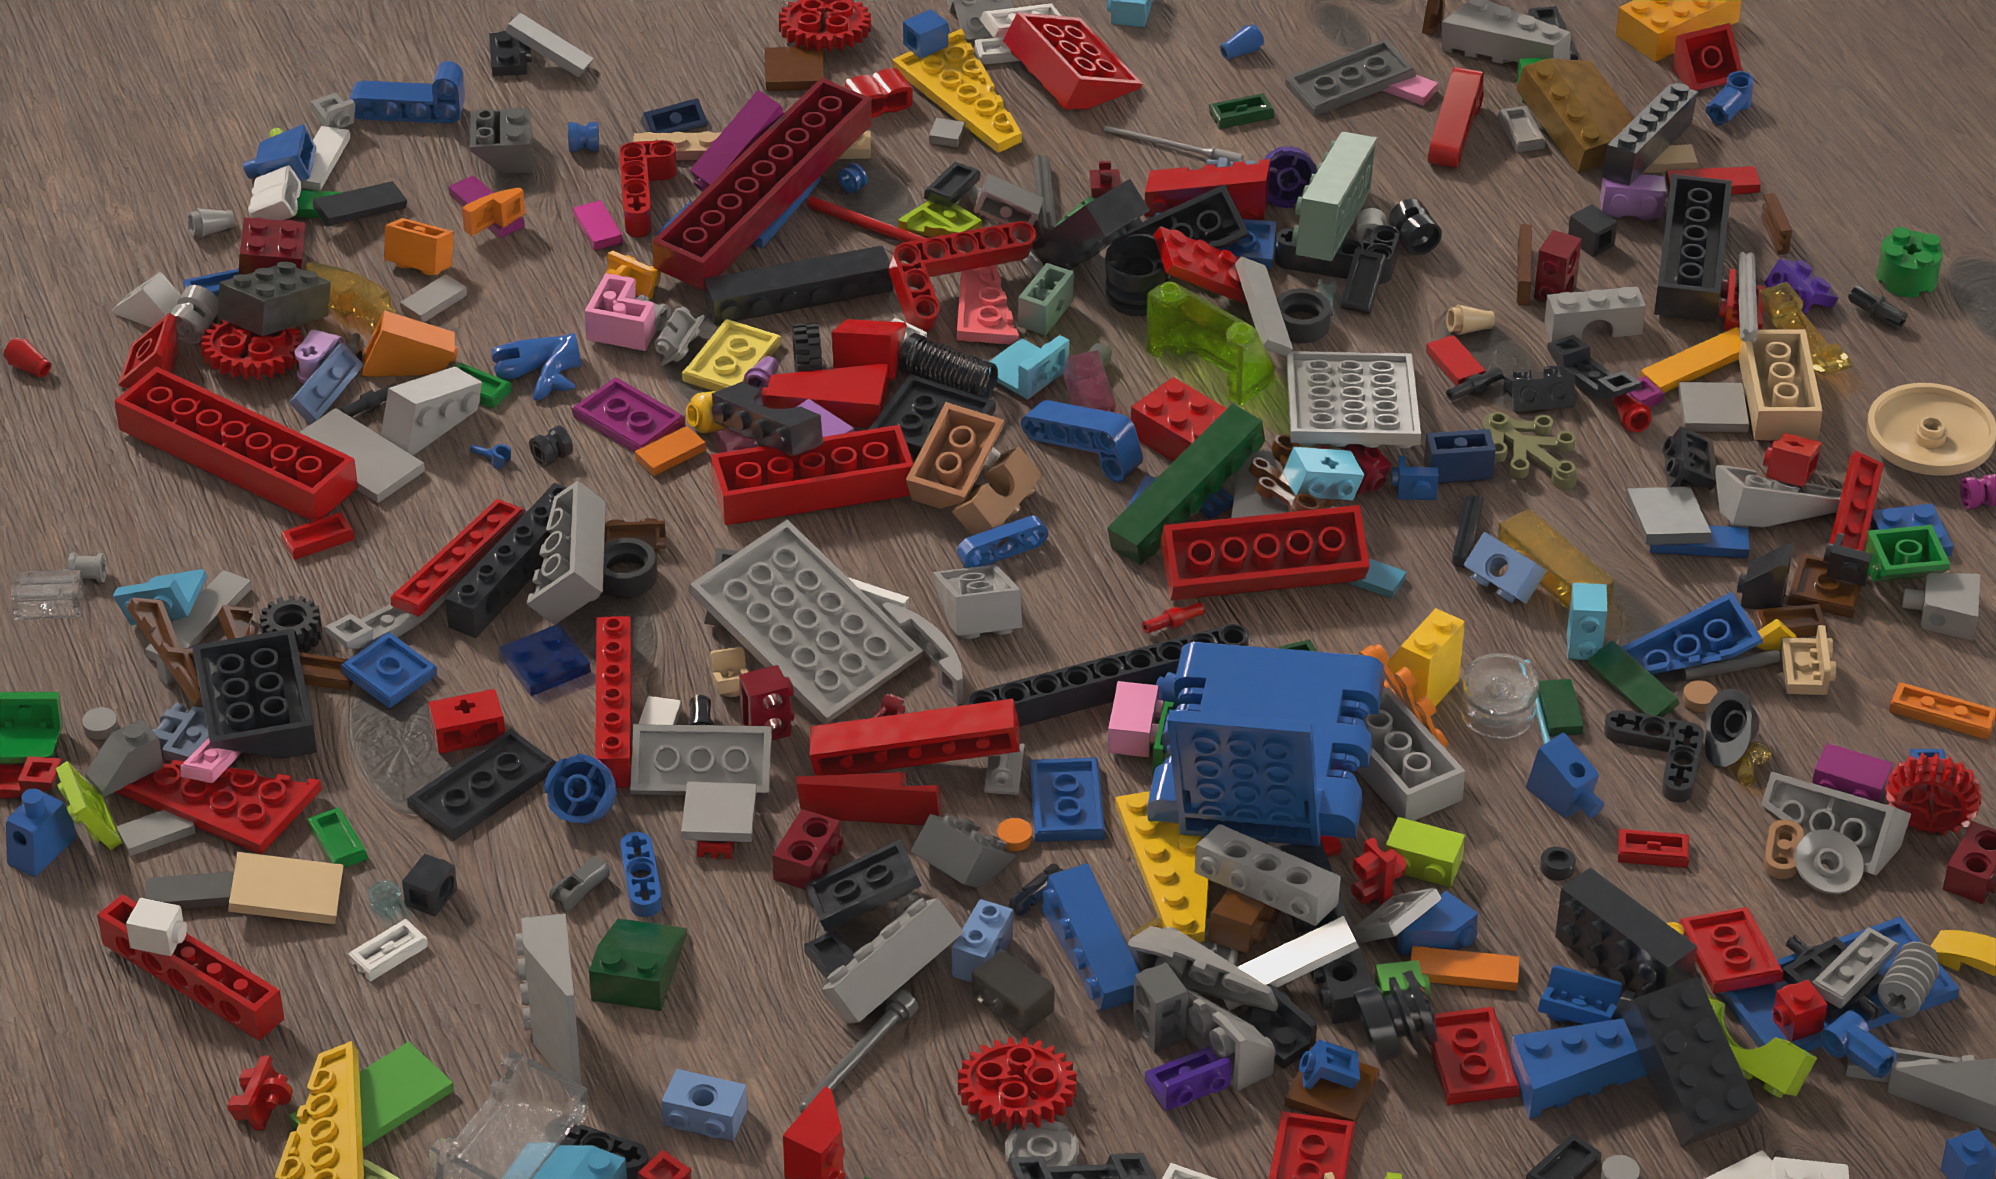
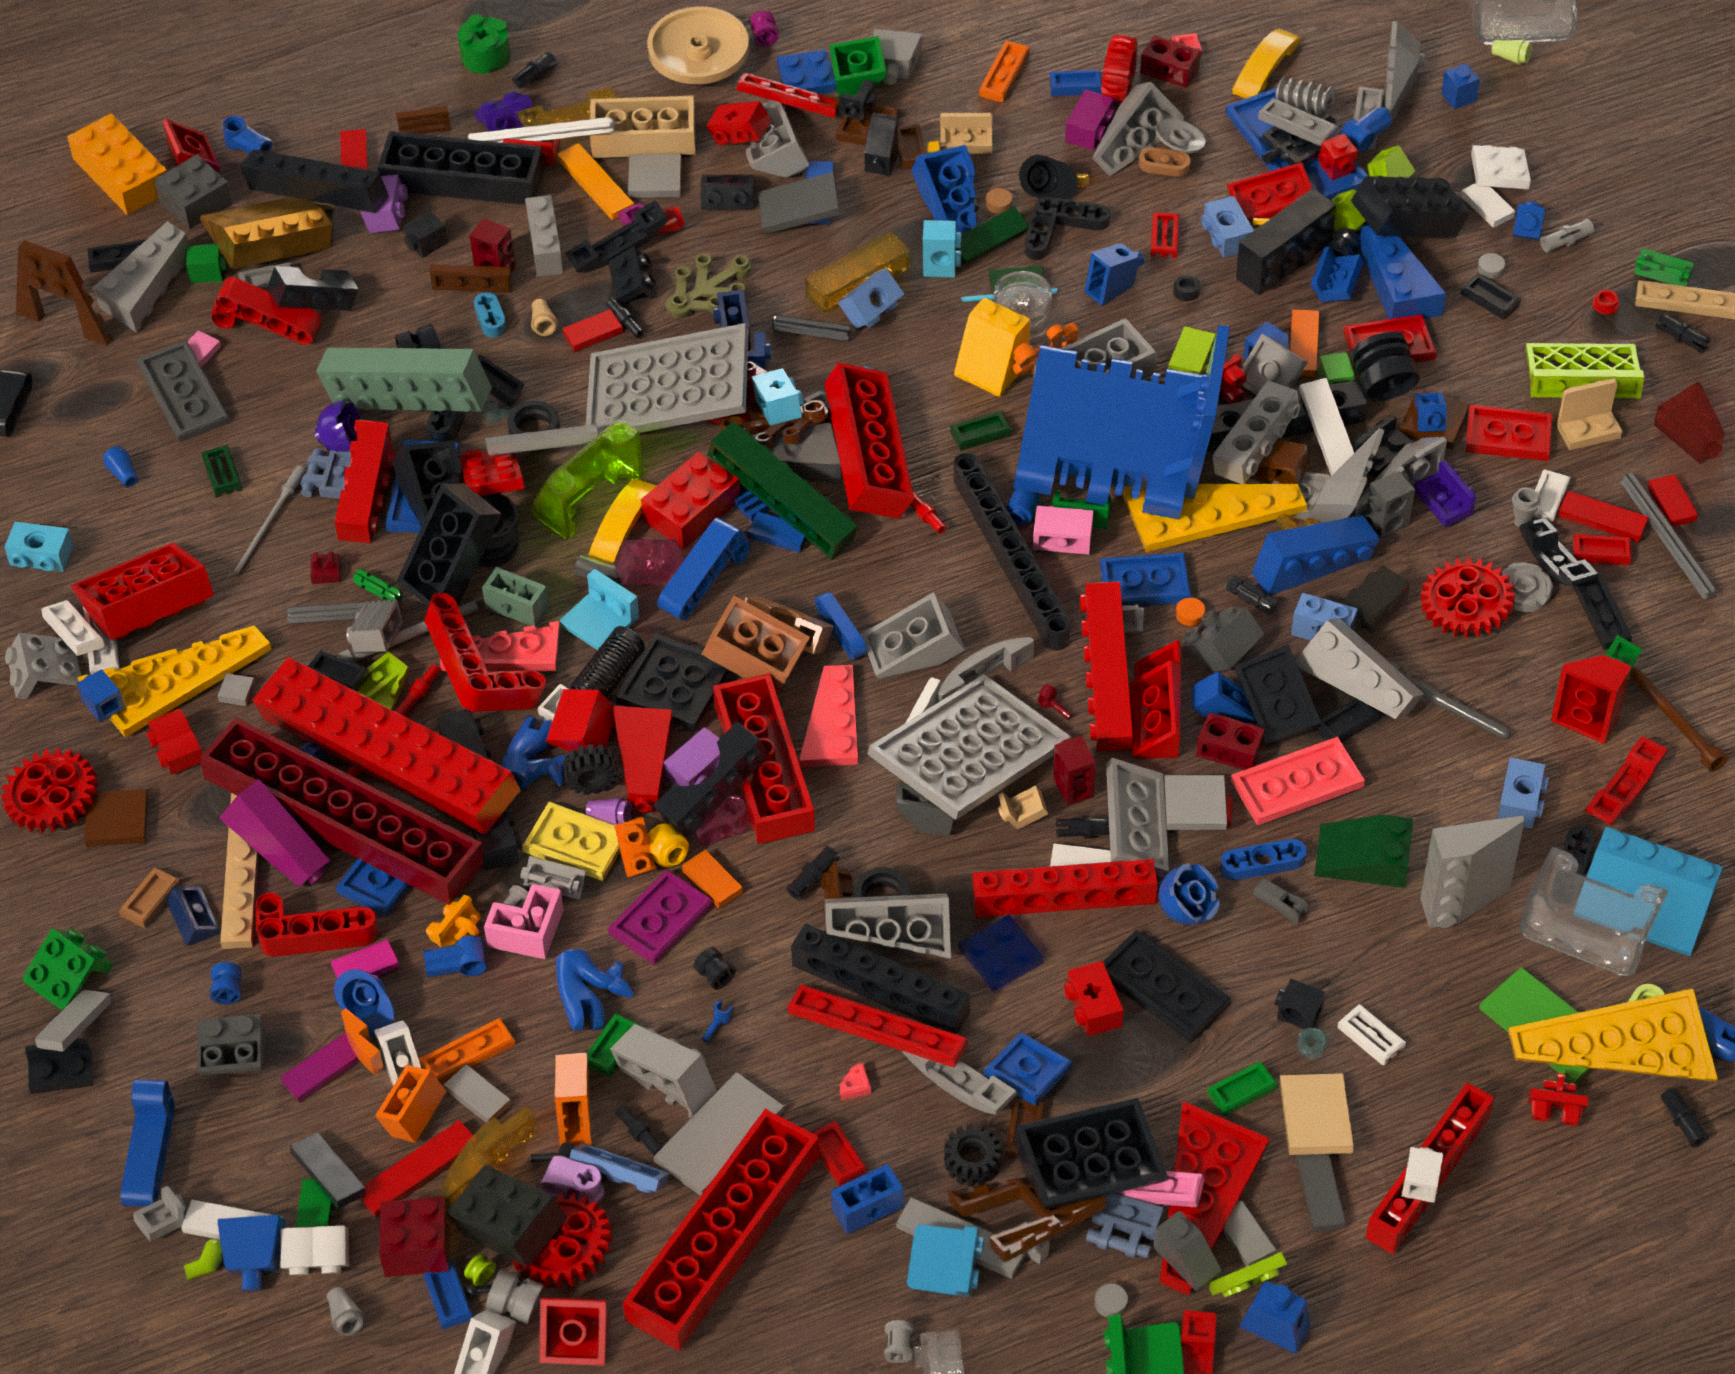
camera: 90 degrees left, 10 degrees up
(246, 540) = (867, 1199): none -> blue brick
(351, 256) = (416, 1168): none -> red tile
(400, 550) = (855, 1083): none -> coral tile
(483, 241) = (396, 1048): none -> white slope
(485, 292) = (468, 1050): none -> orange tile
(553, 221) = (365, 998): none -> blue piece
(589, 272) = (464, 957): none -> blue piece
(624, 45) = (64, 966): none -> green bracket
(673, 522) = (812, 873): none -> black pin
(688, 88) = (149, 897): none -> medium nougat tile
(710, 376) = (634, 847): none -> orange hips
(747, 907) = (1297, 781): none -> coral plate
(826, 308) = (526, 745): none -> blue piece
(839, 209) = (387, 745): none -> red brick
(866, 835) = (1221, 697): none -> blue slope
(870, 540) = (832, 724): none -> coral wing
(1153, 373) = (619, 521): none -> yellow slope
(1160, 1143) = (1525, 505): none -> light grey cone
(1475, 284) = (485, 316): none -> dark azure beam
(1488, 162) = (295, 290): none -> black arch
(1641, 64) = (192, 191): none -> dark grey brick
(1669, 894) = (1225, 224): none -> medium blue brick

